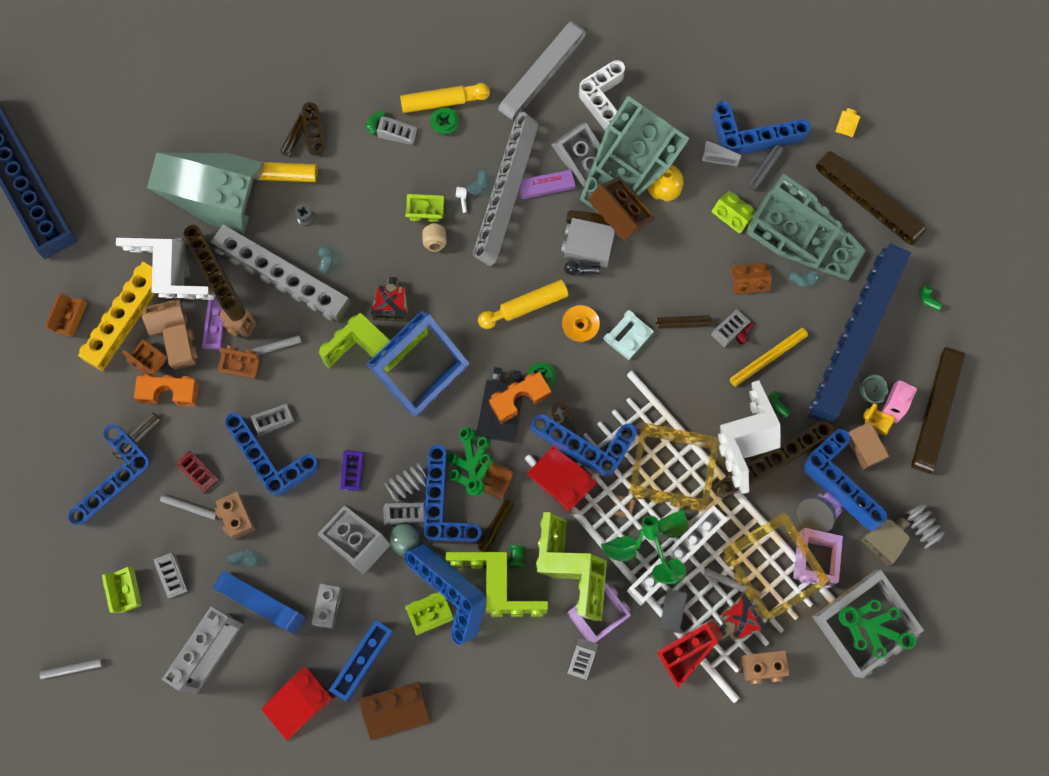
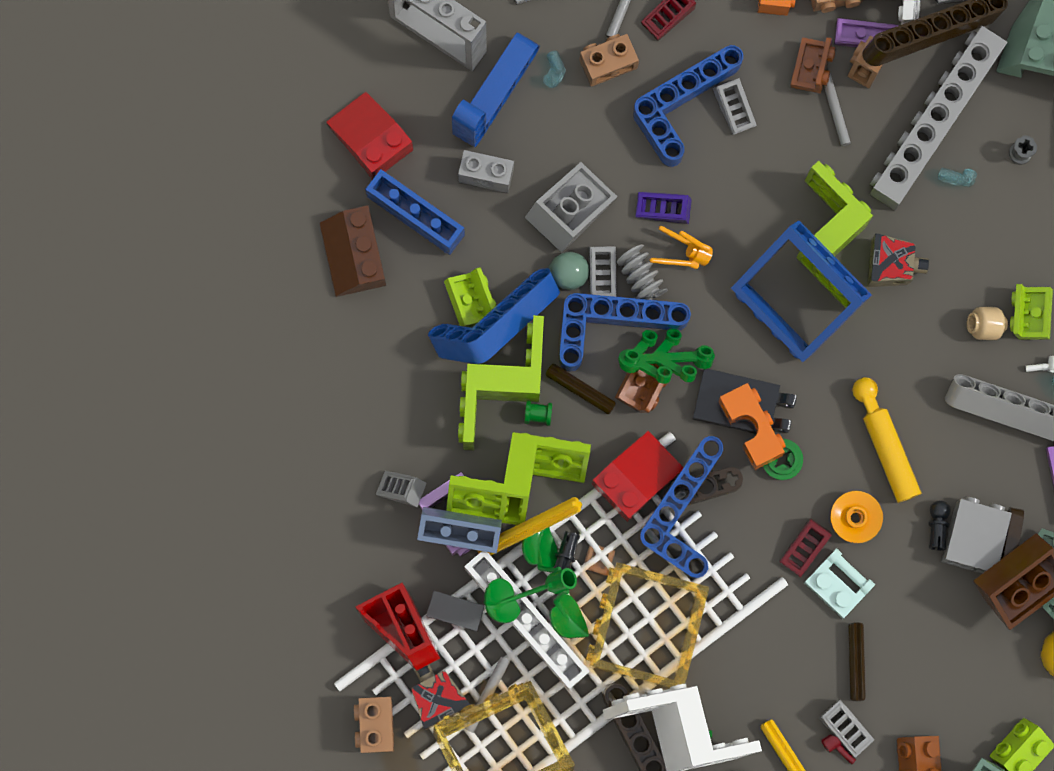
camera: 90 degrees right, 5 degrees up
(387, 443) = (696, 251): none -> light orange plant
(607, 353) = (811, 524): none -> dark red slope
(609, 555) = (538, 523): none -> yellow axle
(615, 608) = (459, 530): none -> sand blue brick
(624, 529) = (567, 550): none -> black axle

